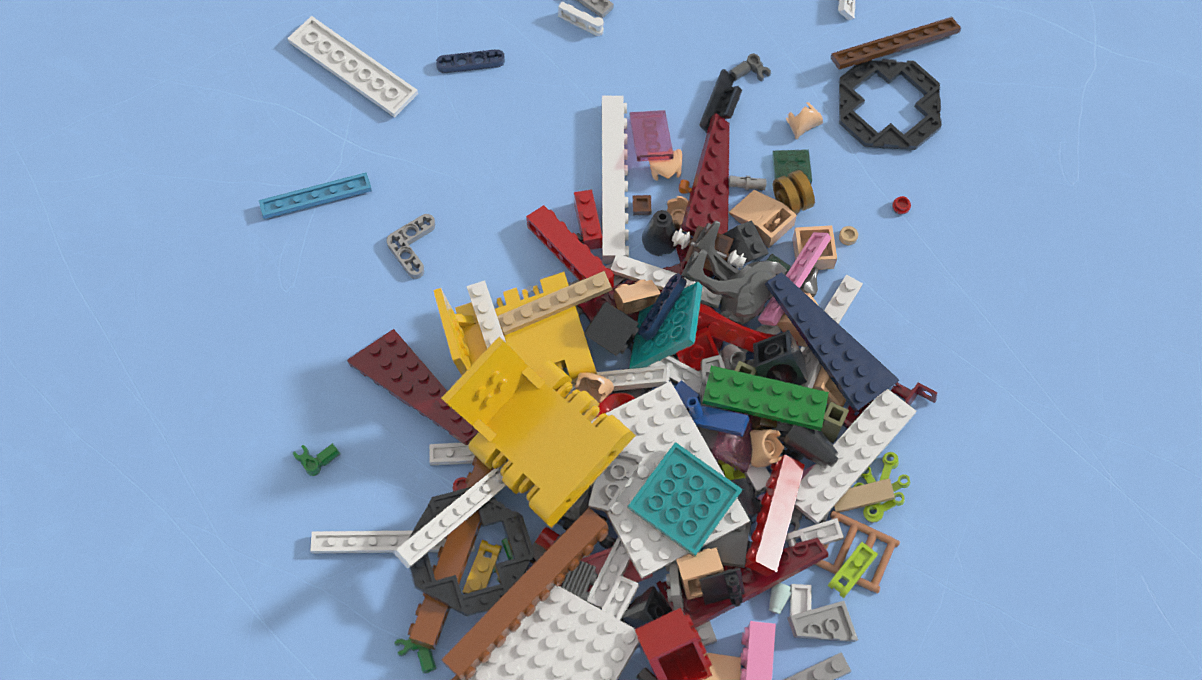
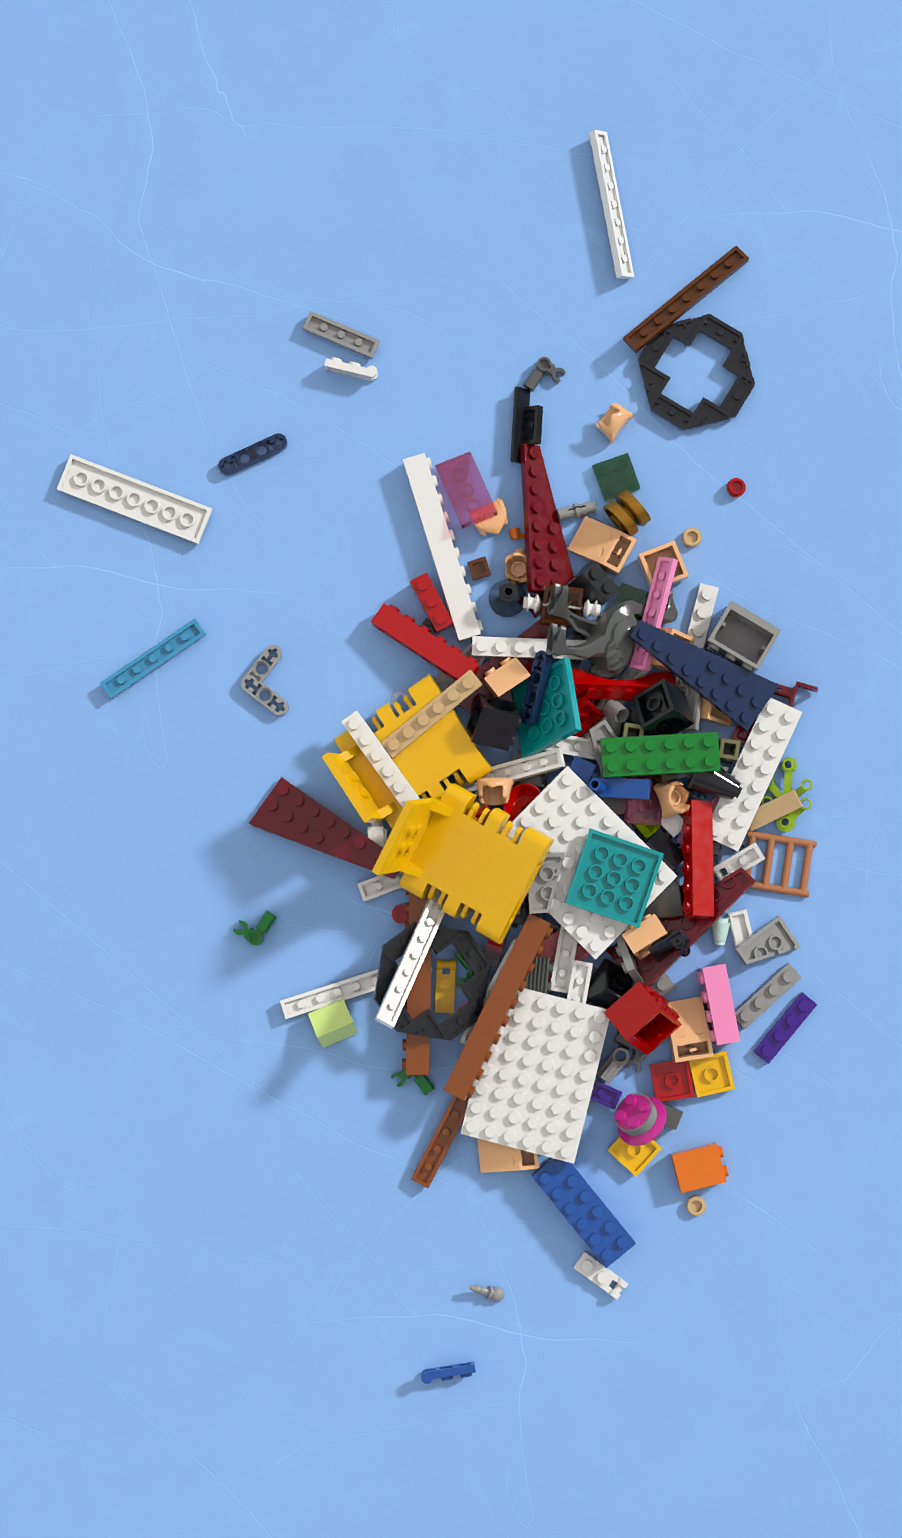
camera: 15 degrees left, 20 degrees up
(356, 570) = (332, 1023): none -> yellowish green slope
(853, 569) = (780, 884): lime plate -> none
(876, 325) = (742, 637): none -> light grey container

